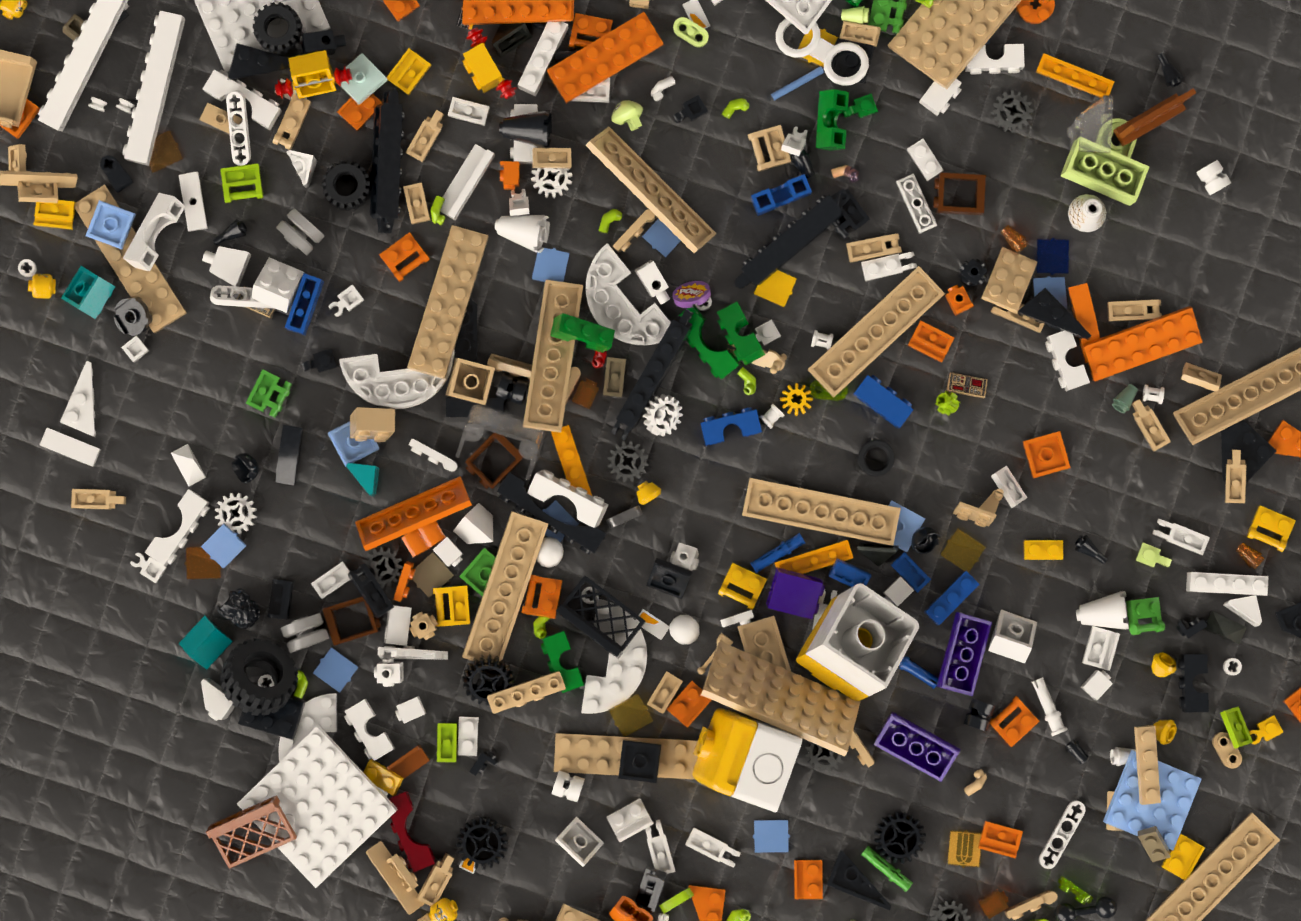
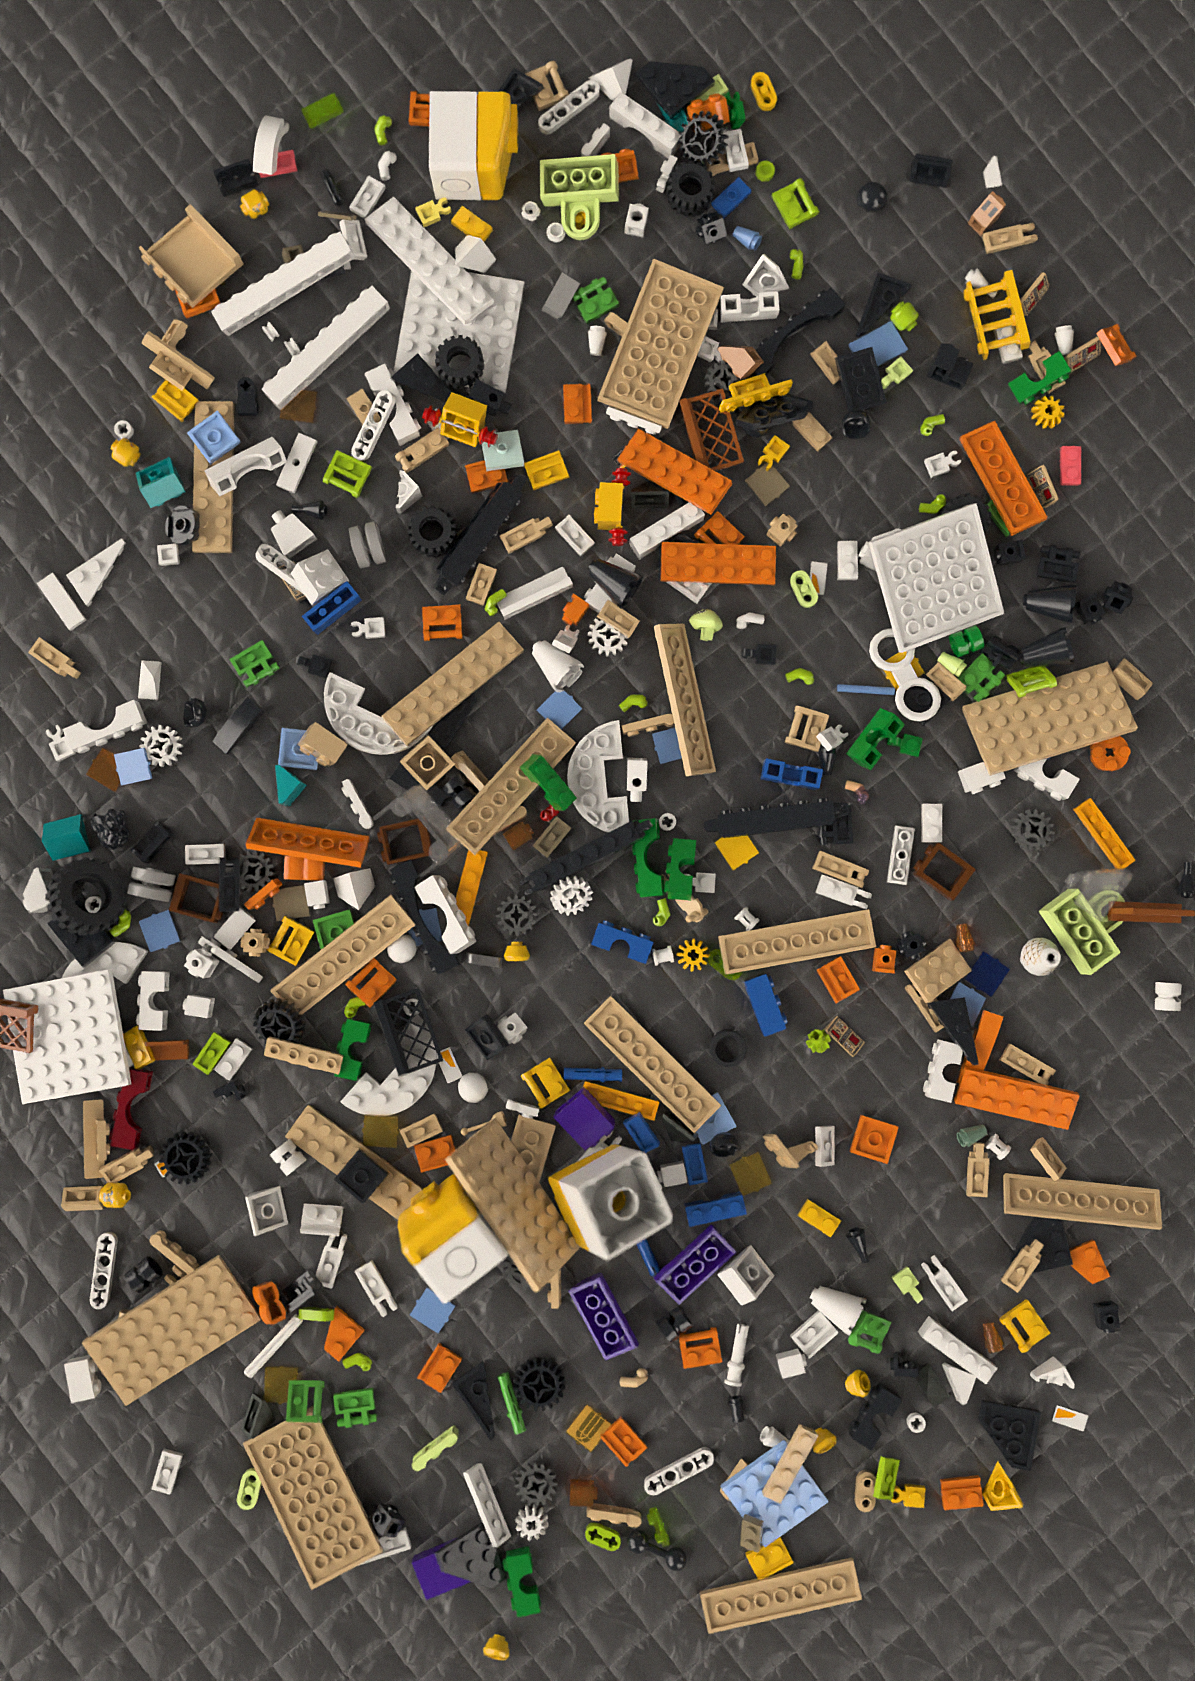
camera: 25 degrees right, 0 degrees up
(691, 293) = (662, 809): tile -> none

